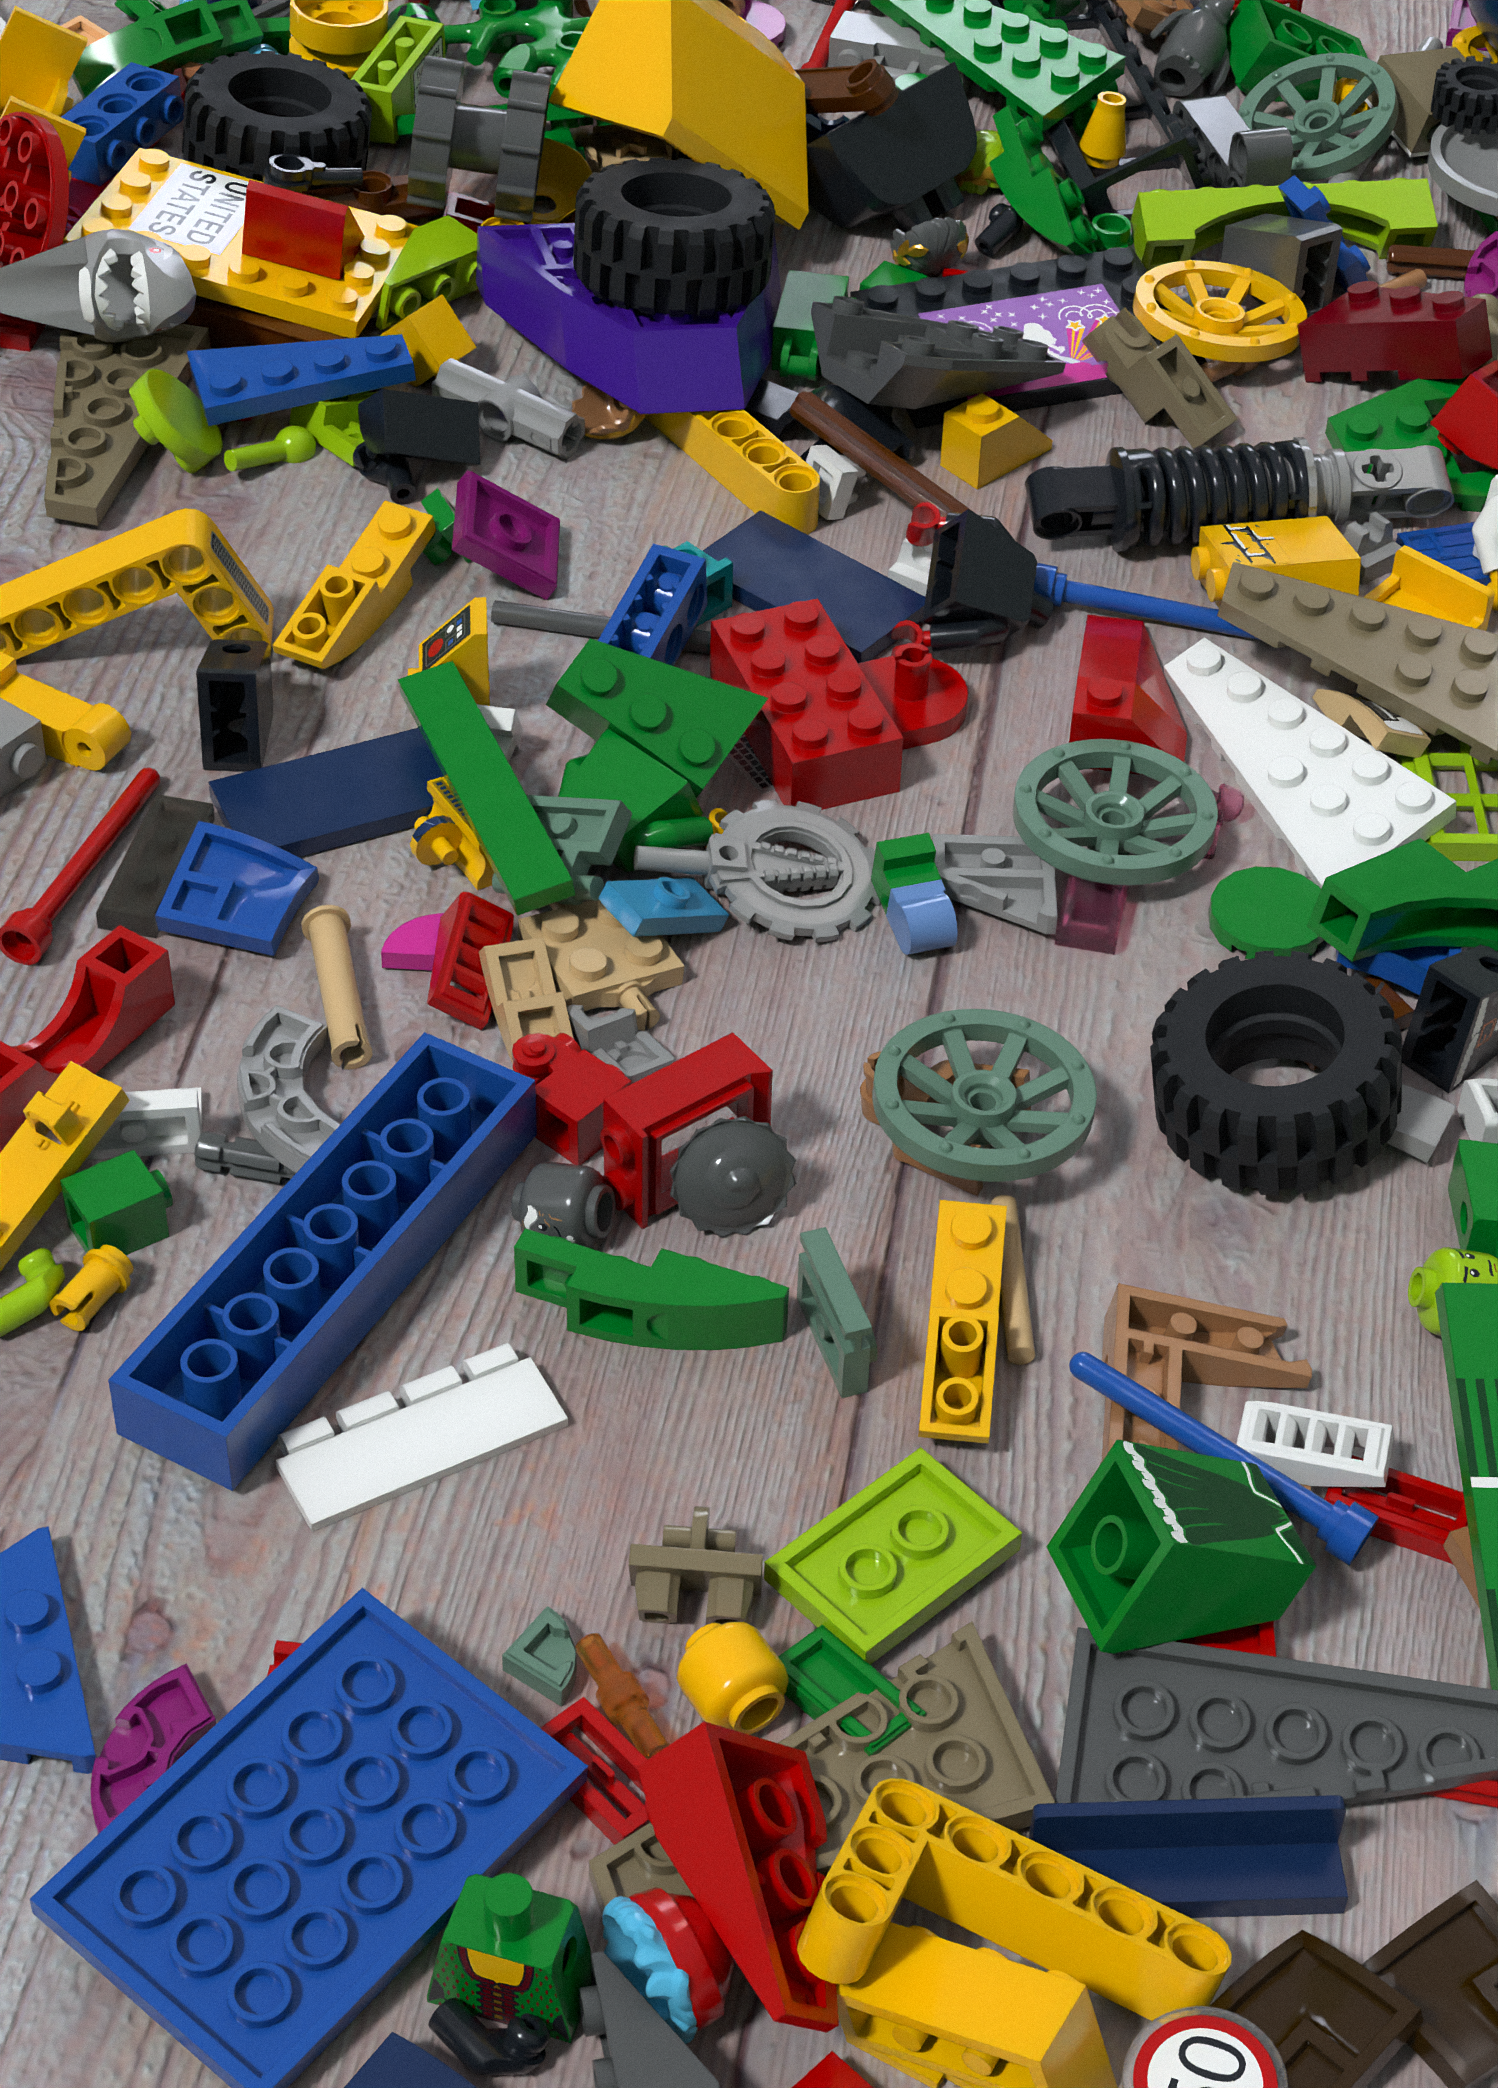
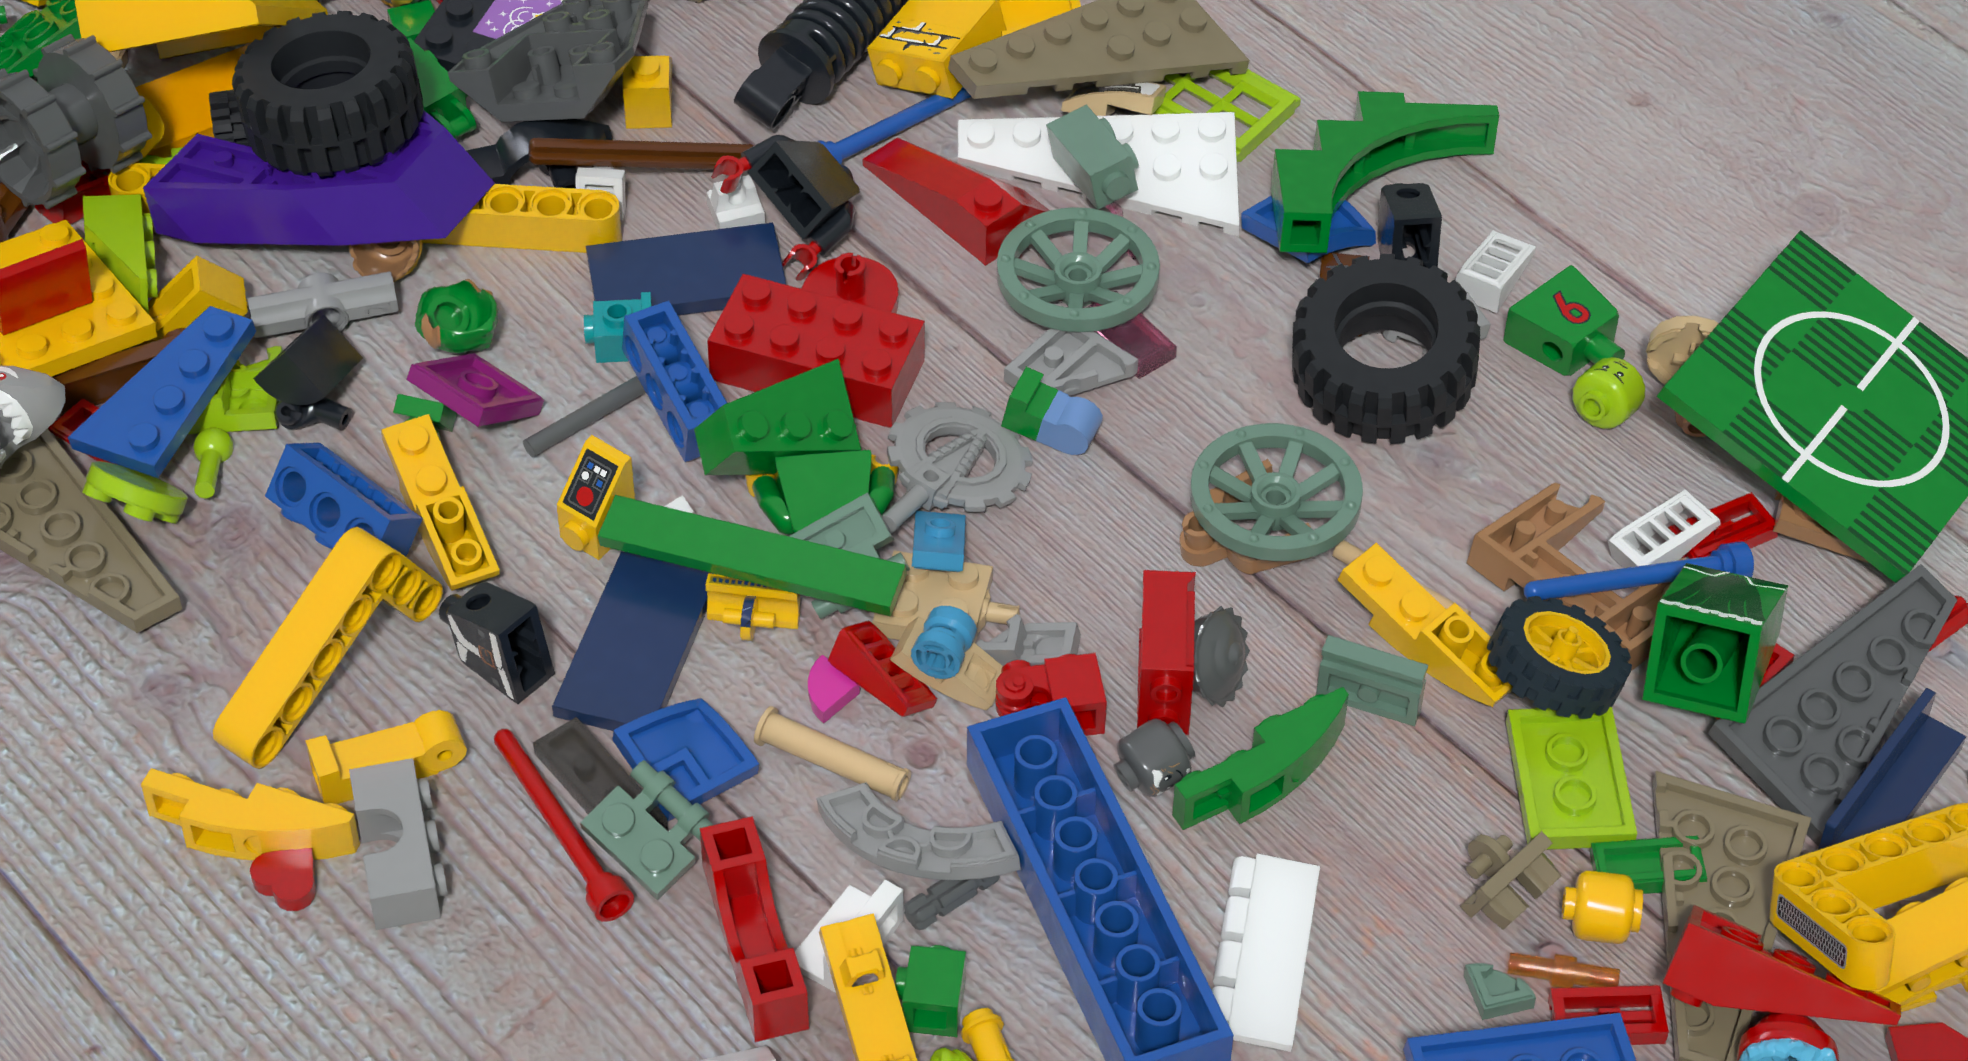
camera: 50 degrees left, 5 degrees up
(105, 896) = (637, 840): none -> sand green plate
(288, 530) = (333, 496): none -> blue brick
(522, 966) = (942, 650): none -> dark azure wheel
(577, 481) = (457, 317): none -> green hair
(999, 1474) = (1559, 657): none -> black wheel
(1254, 732) = (1093, 156): none -> sand green brick
(1264, 911) = (1221, 263): green tile -> none

